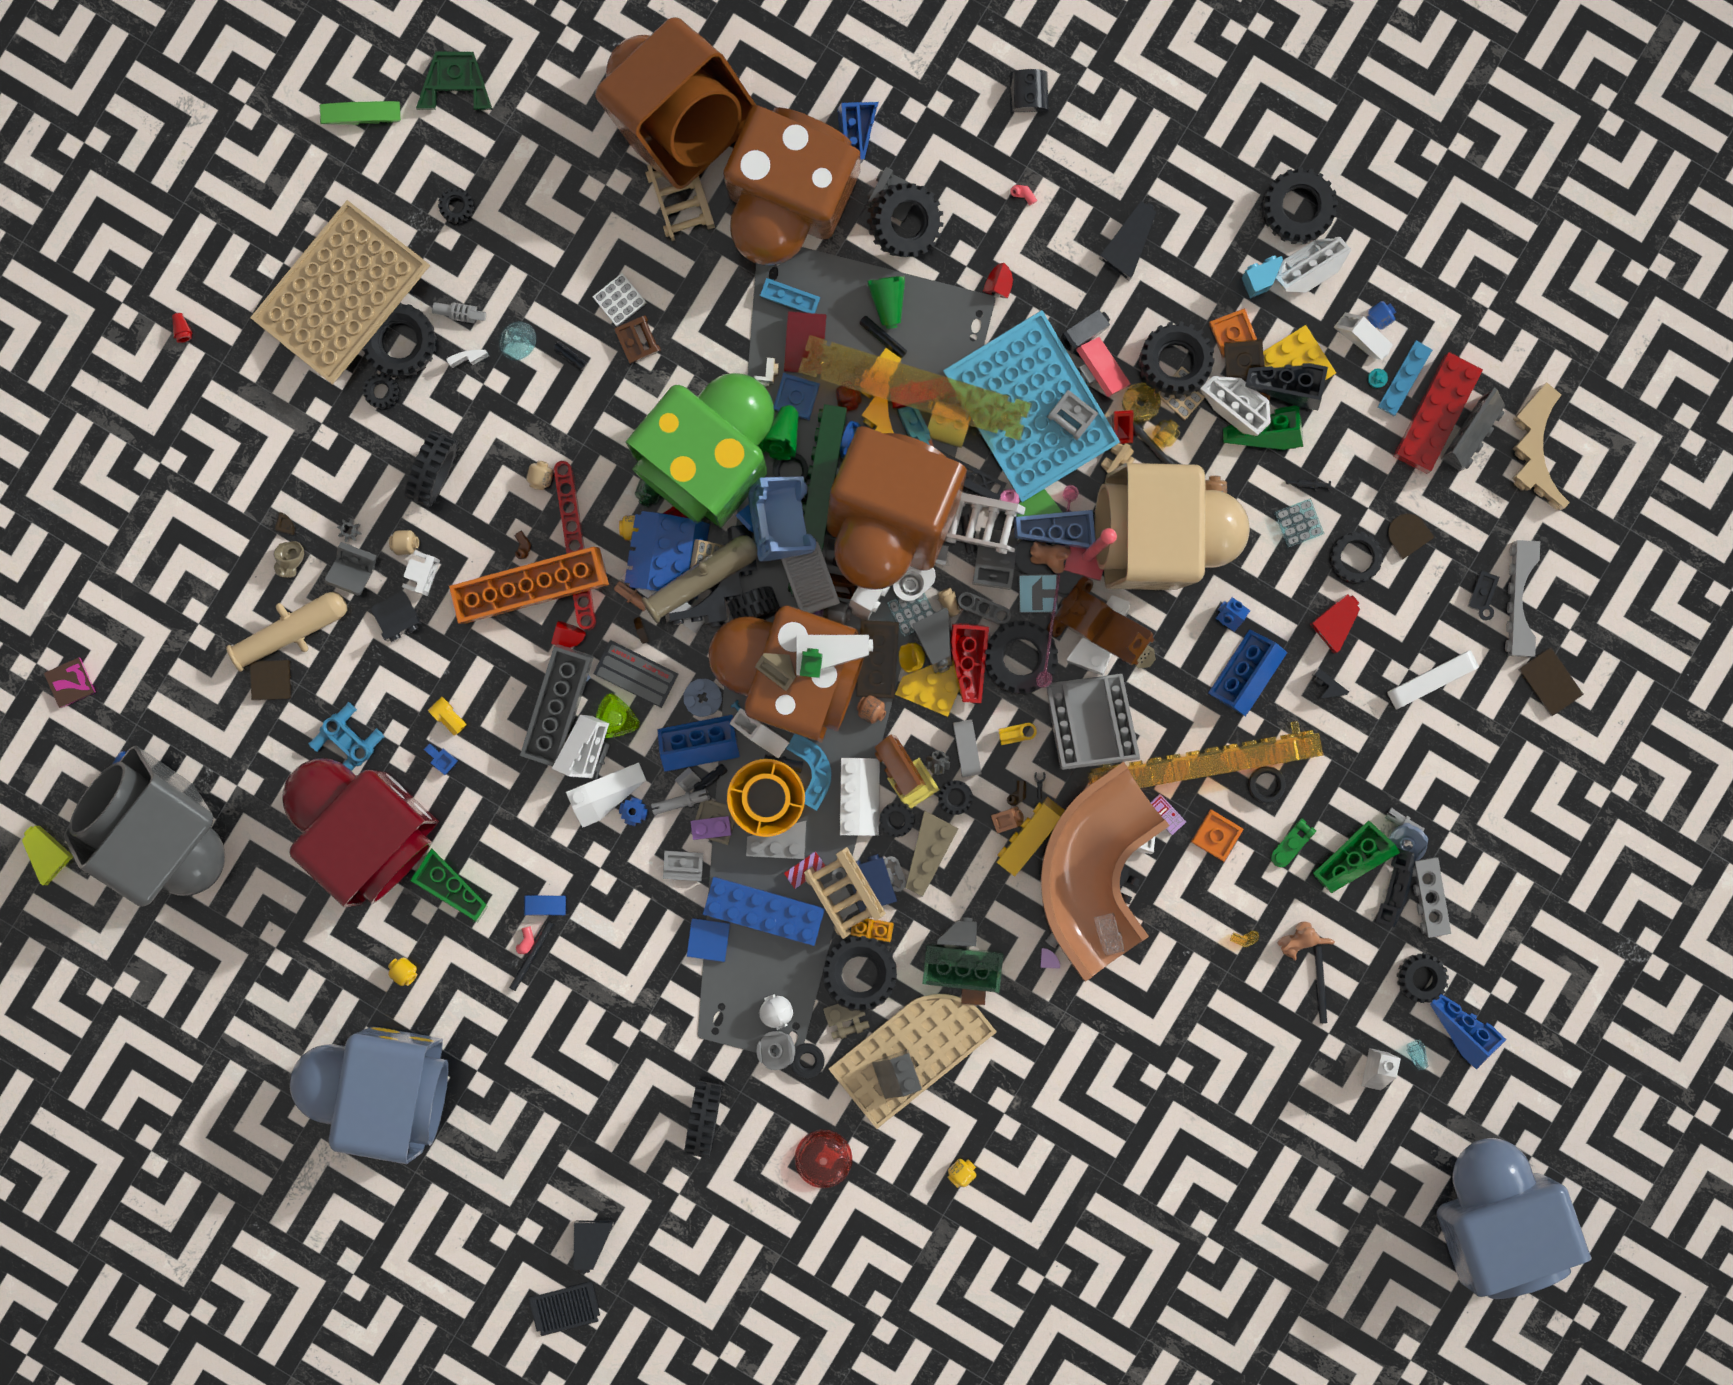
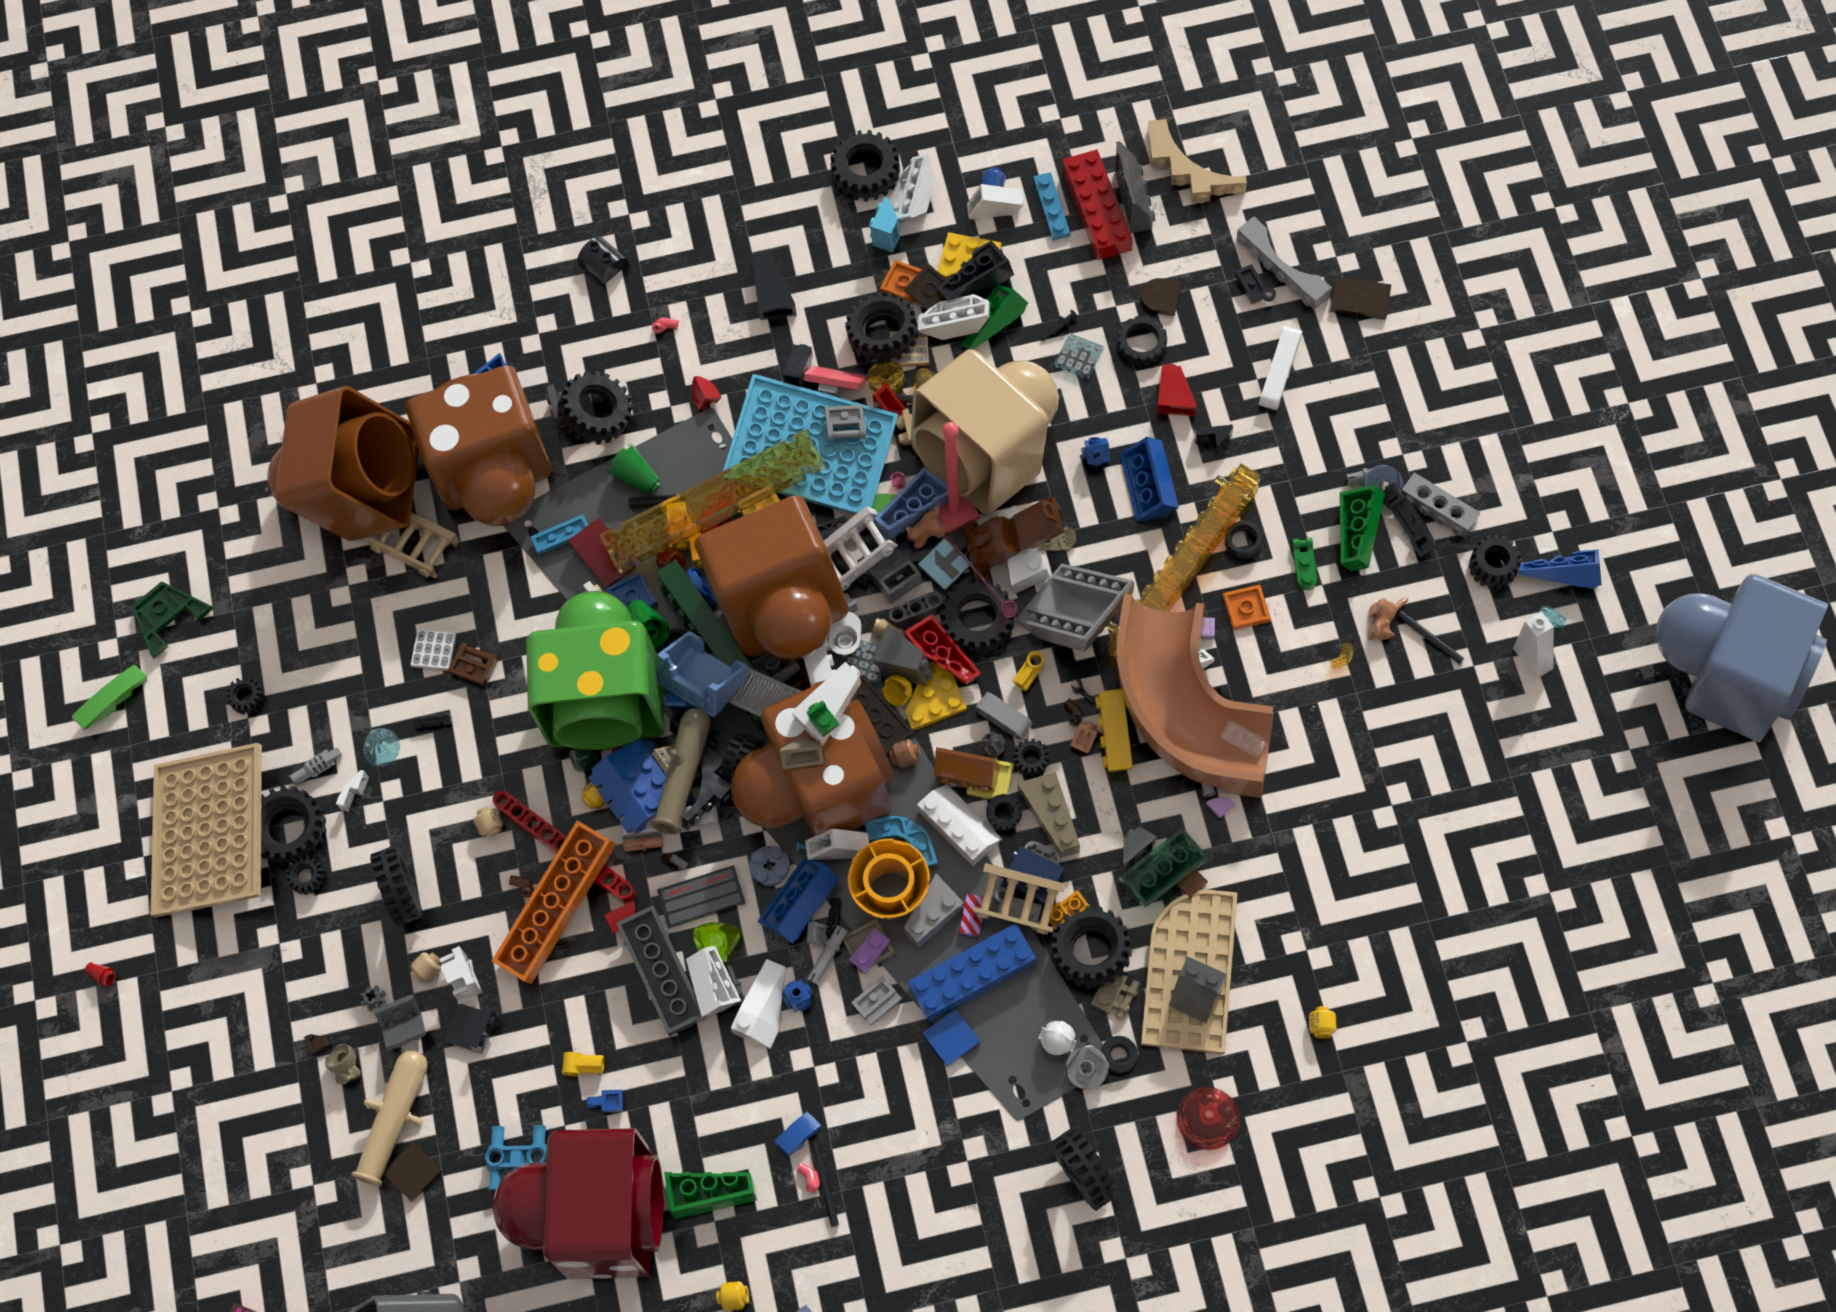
camera: 35 degrees left, 20 degrees down
(1377, 378) = (1033, 222): teal tile -> none

